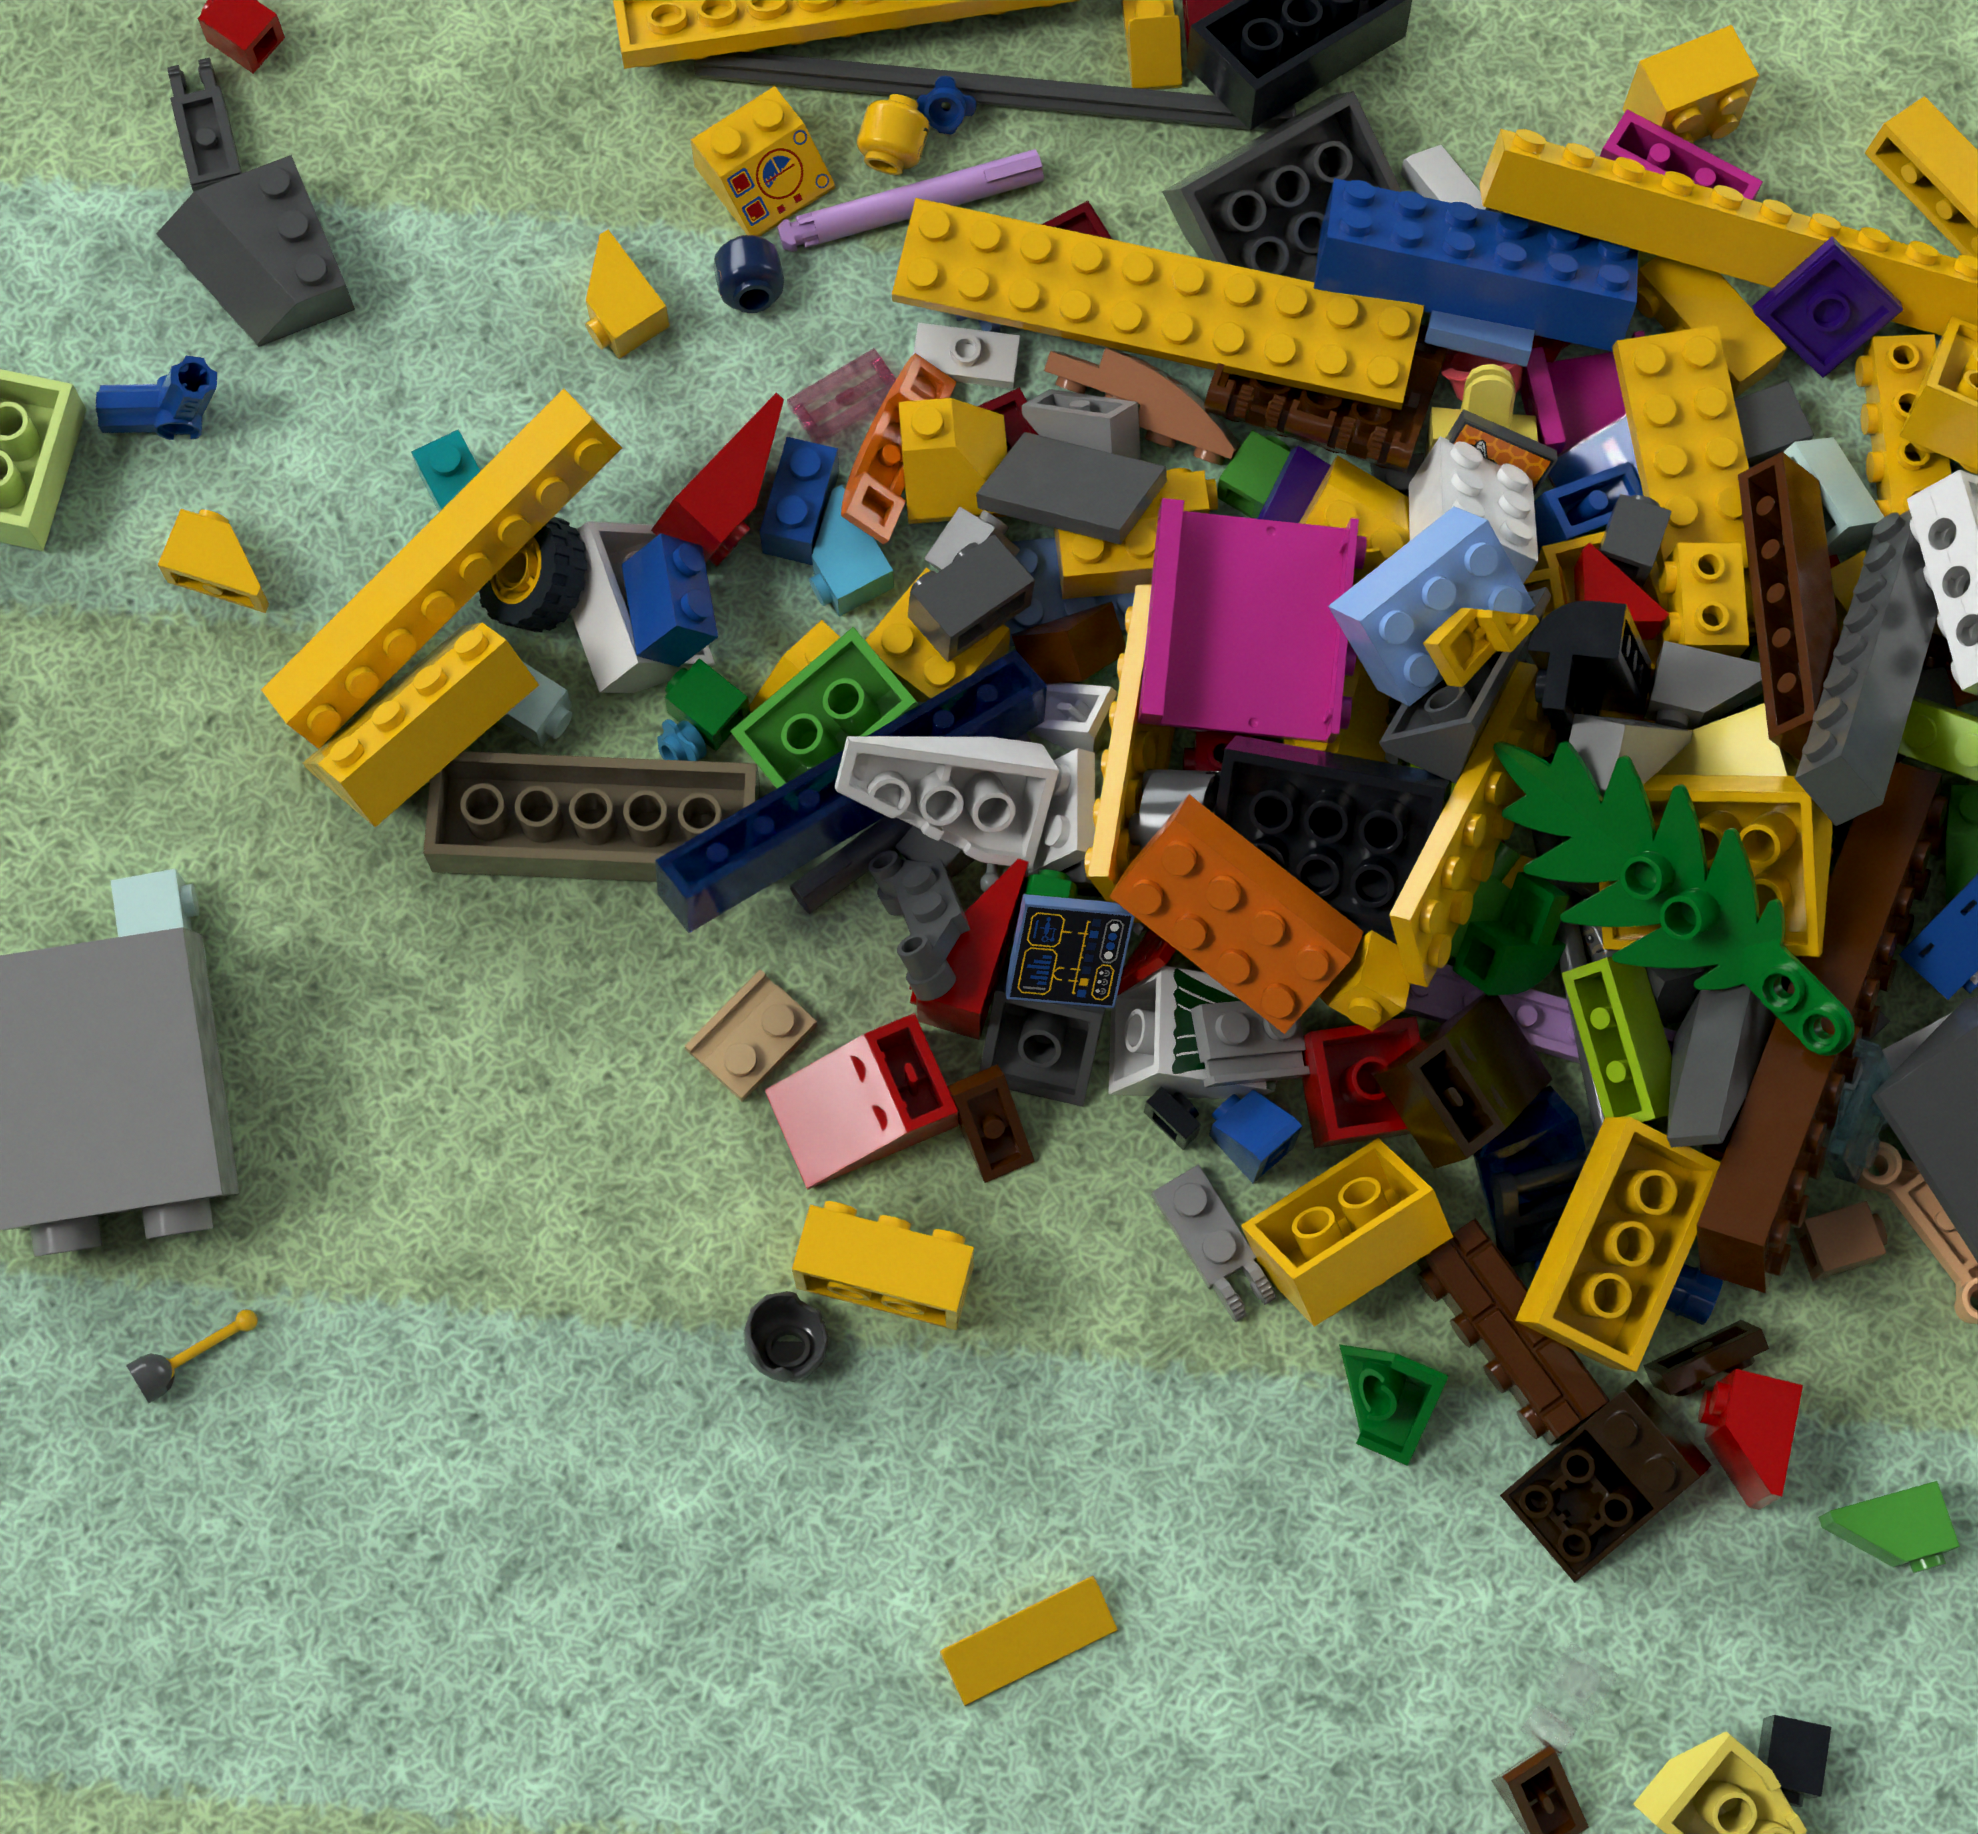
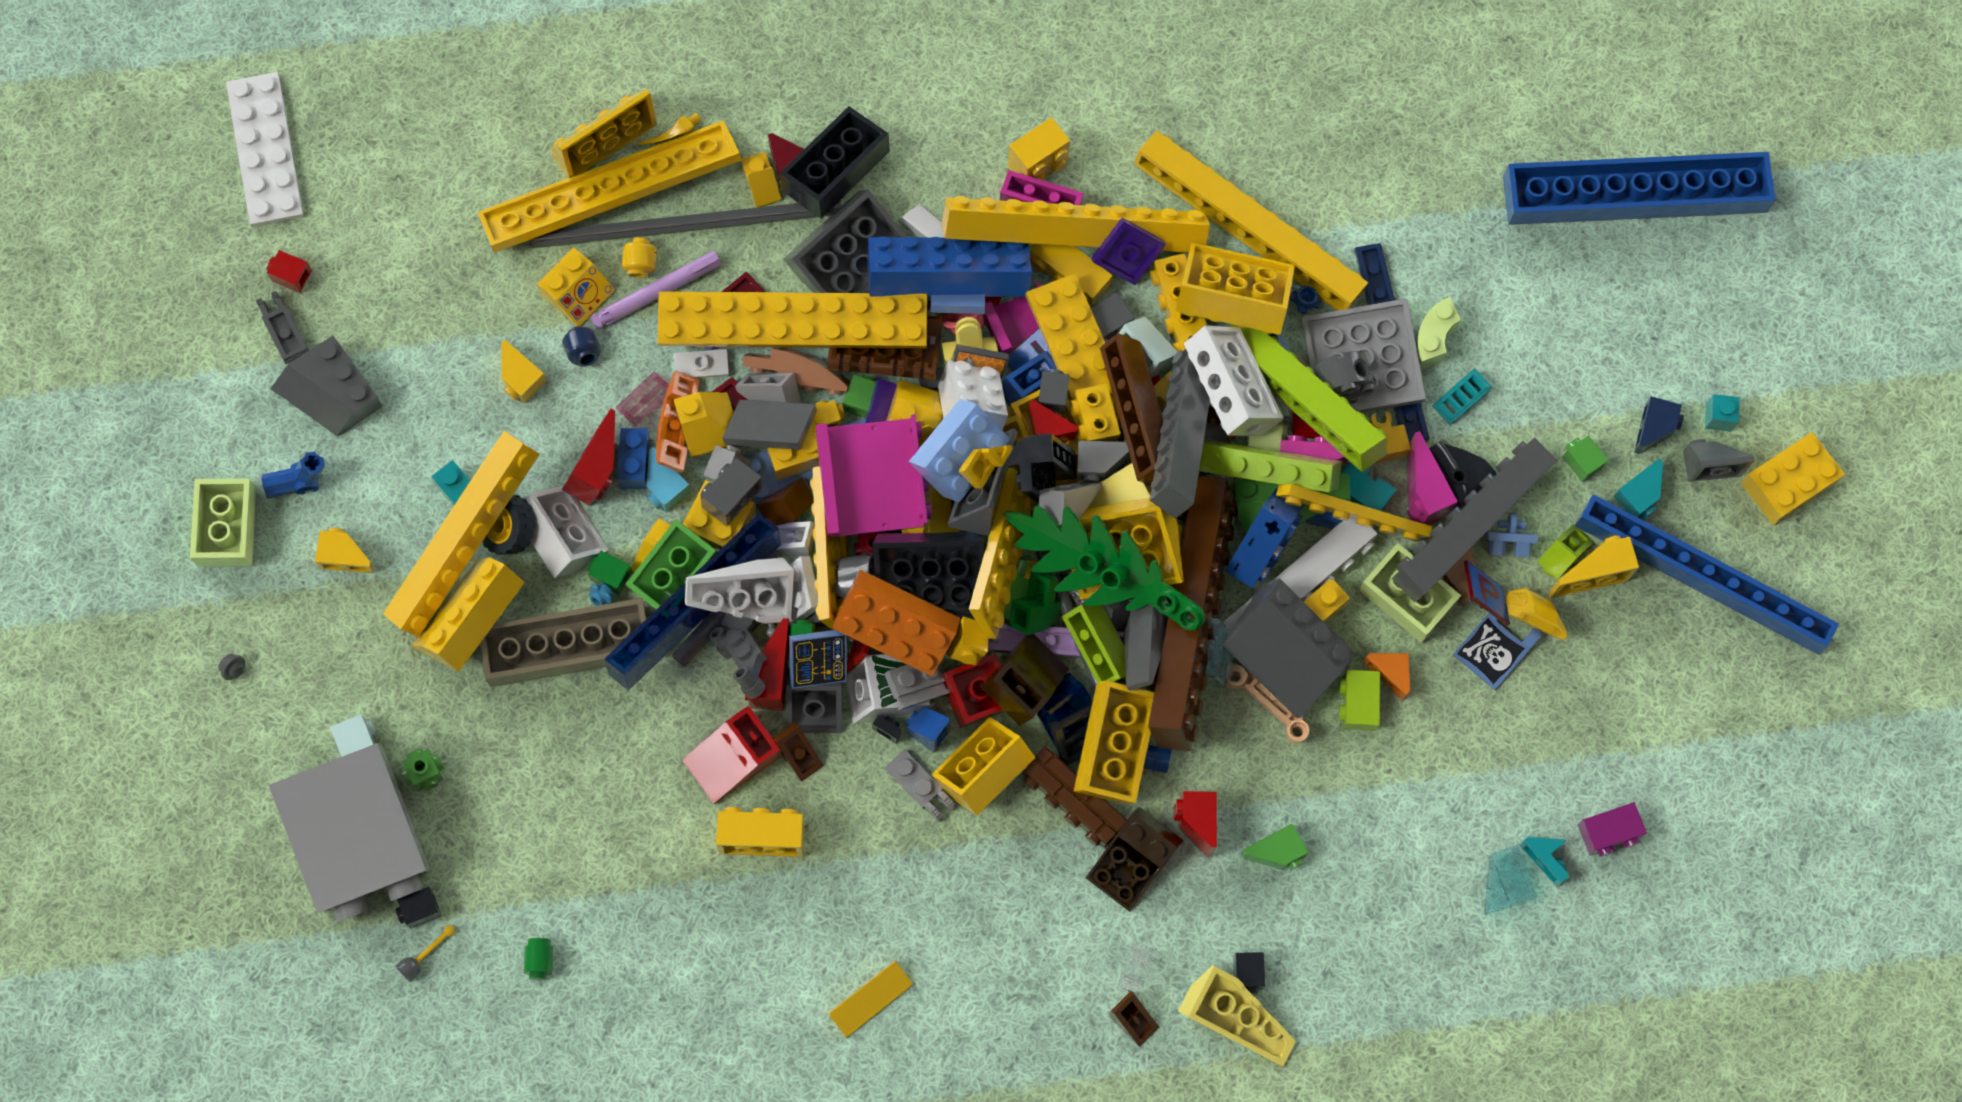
camera: 15 degrees left, 0 degrees up
(196, 1263) = (418, 908): none -> black brick
(276, 1015) = (424, 779): none -> bright green brick
(402, 1413) = (538, 958): none -> green brick
(541, 712) = (528, 595): light aqua brick -> none
(669, 600) = (580, 525): blue brick -> none
(751, 1035) = (669, 734): tan plate -> none
(780, 1316) = (719, 868): dark grey hair -> none
(942, 119) = (663, 243): blue plate -> none
(1391, 1399) = (1022, 843): green slope -> none
(1724, 1350) = (1162, 796): dark brown plate -> none
(1841, 1240) = (1225, 717): medium nougat brick -> none

